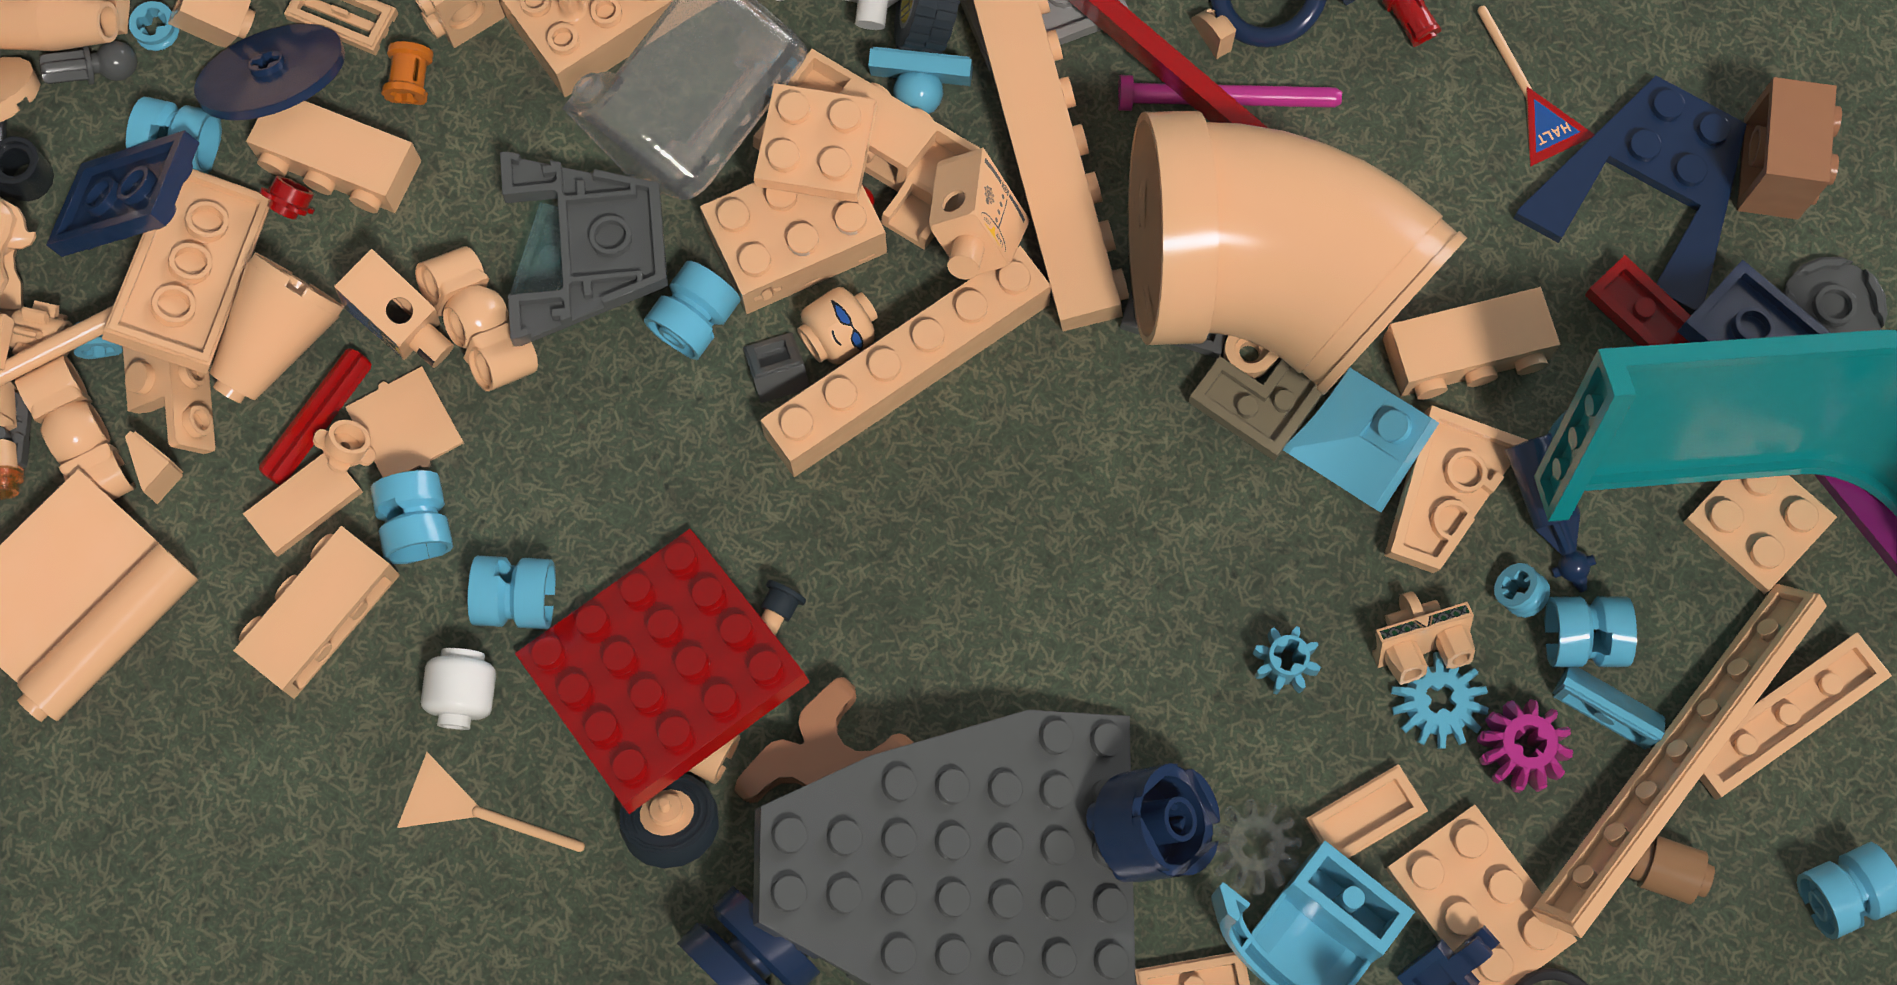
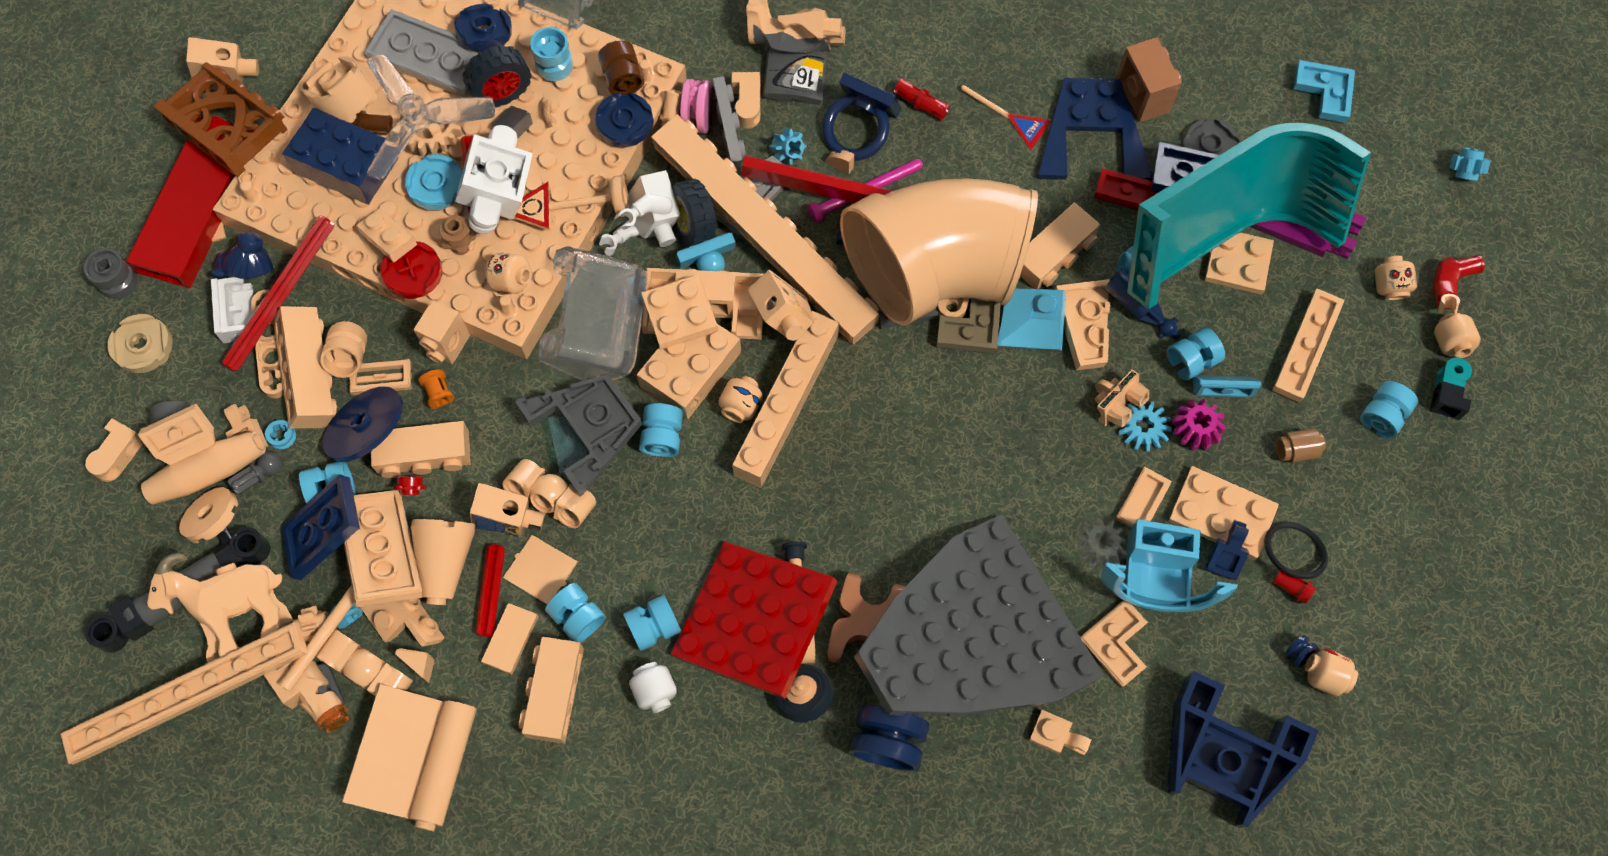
camera: 30 degrees left, 5 degrees down
(345, 445) = (517, 595): light nougat plate -> none
(440, 799) = (674, 751): light nougat piece -> none
(776, 367) = (719, 437): dark grey slope -> none
(1155, 823) = (1050, 557): dark blue brick -> none
(1272, 662) = (1056, 450): medium azure gear -> none
(1522, 576) = (1147, 345): medium azure bush -> none
(1678, 760) = (1275, 393): light nougat tile -> none

